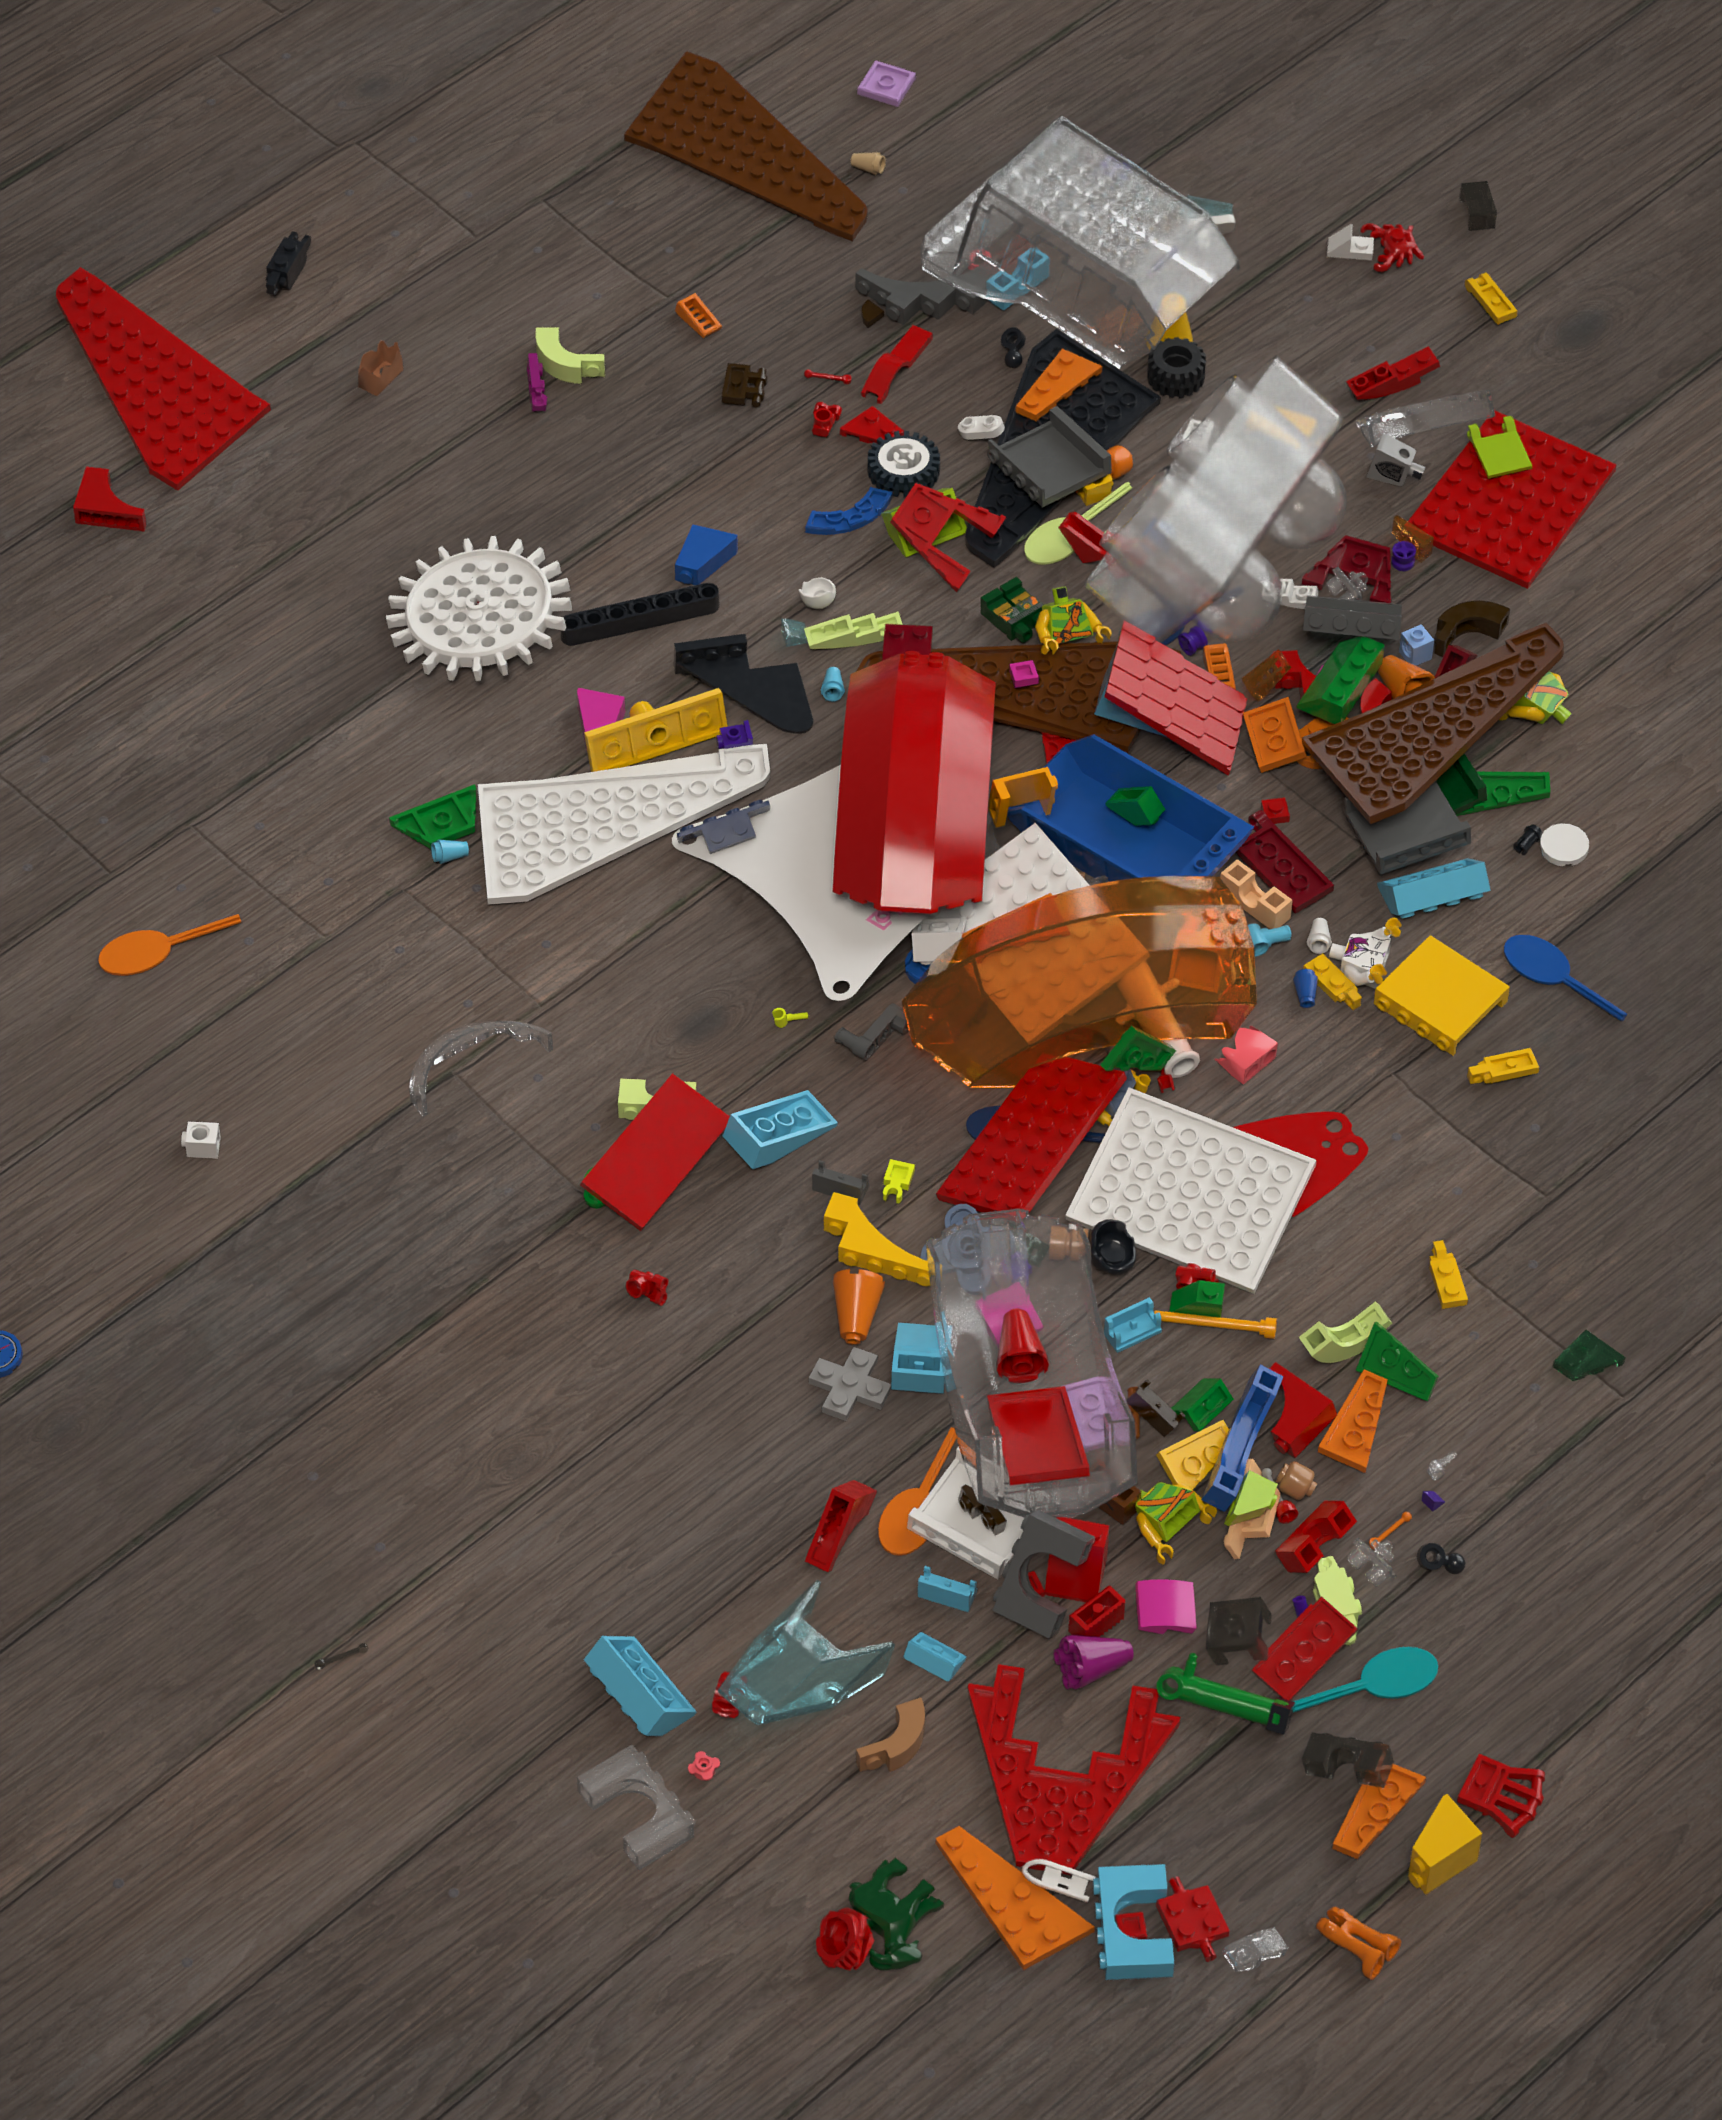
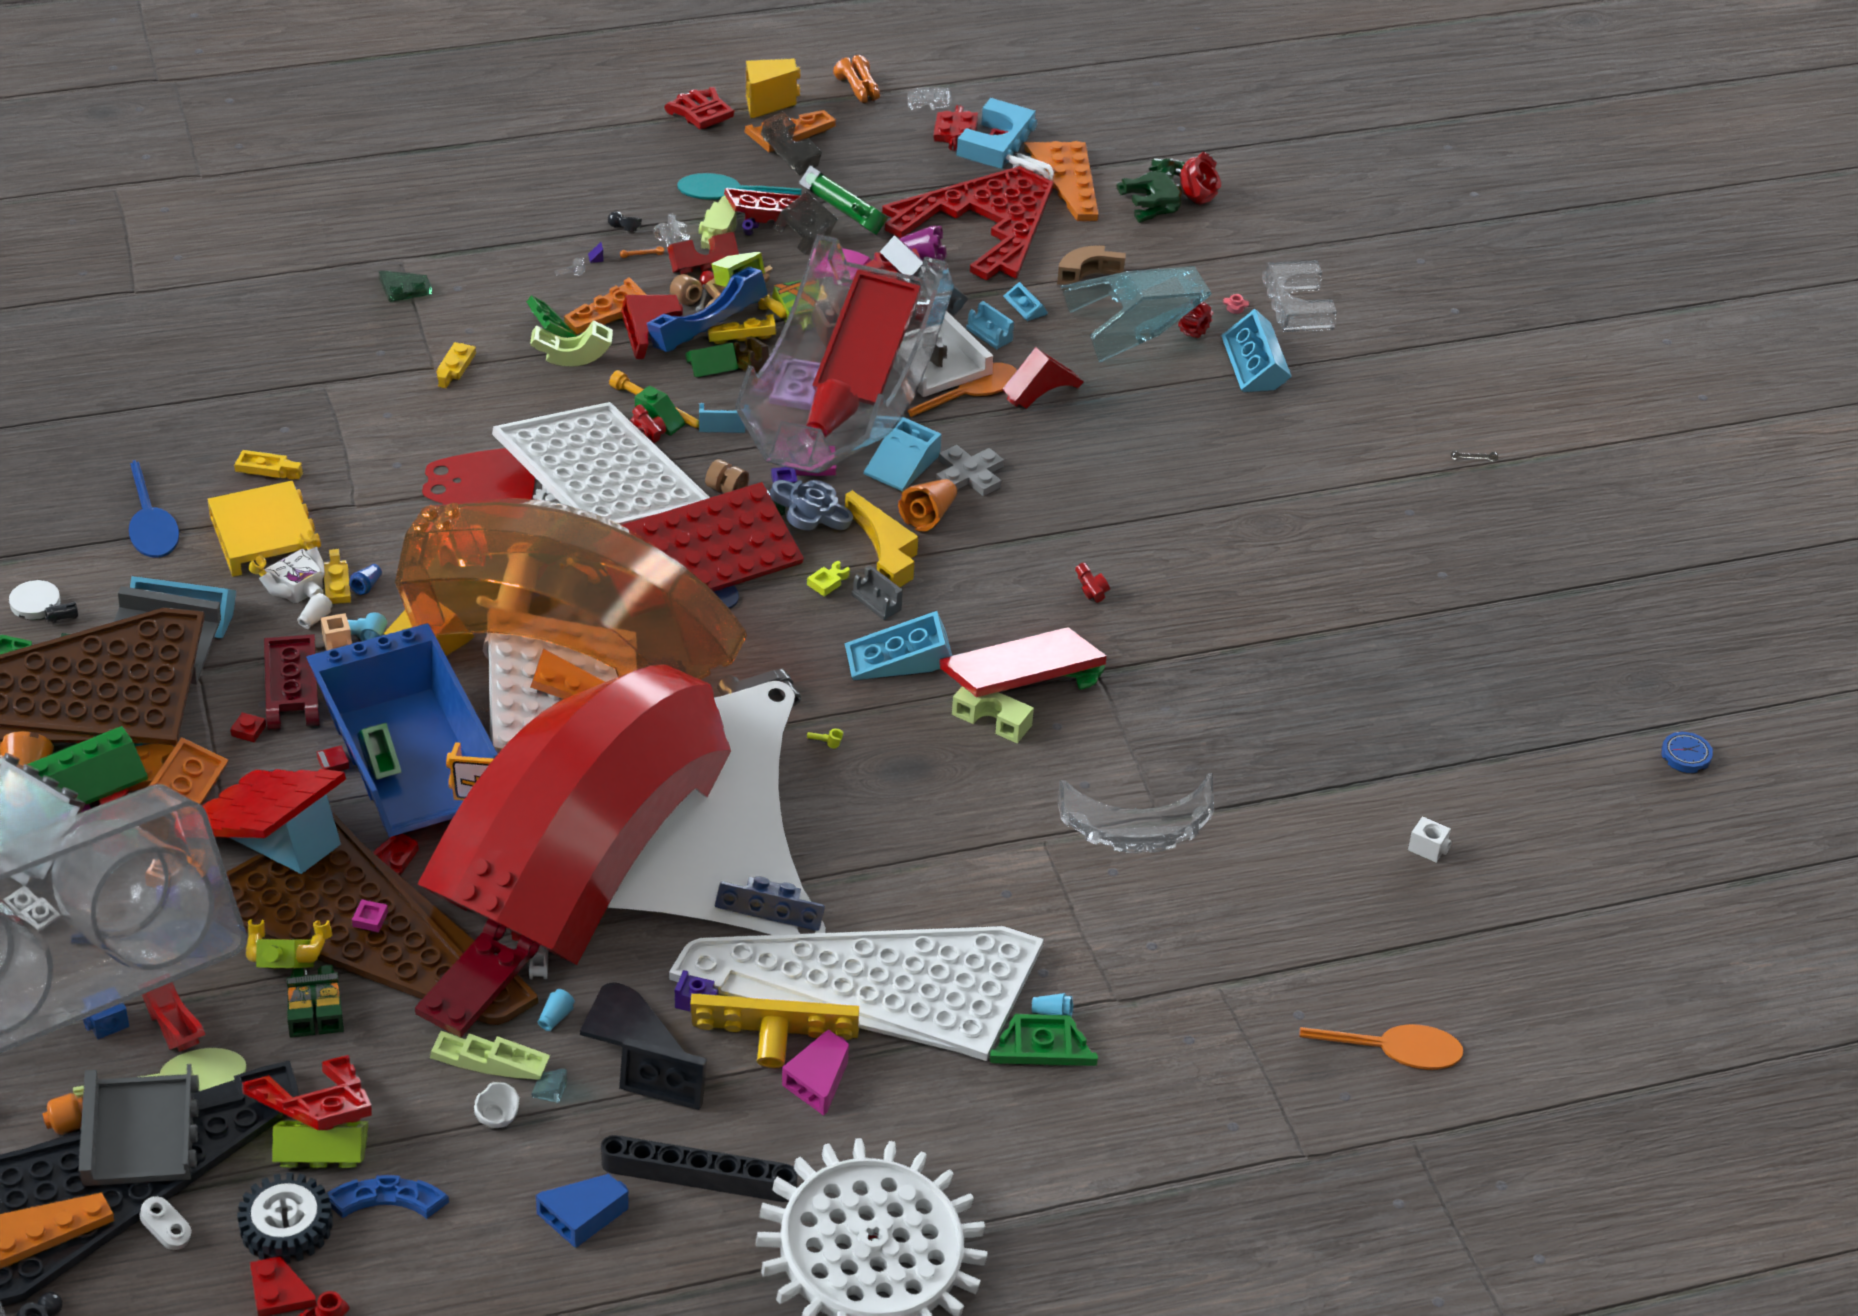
camera: 155 degrees left, 10 degrees down
(1112, 1247) = (696, 461): black piece -> none

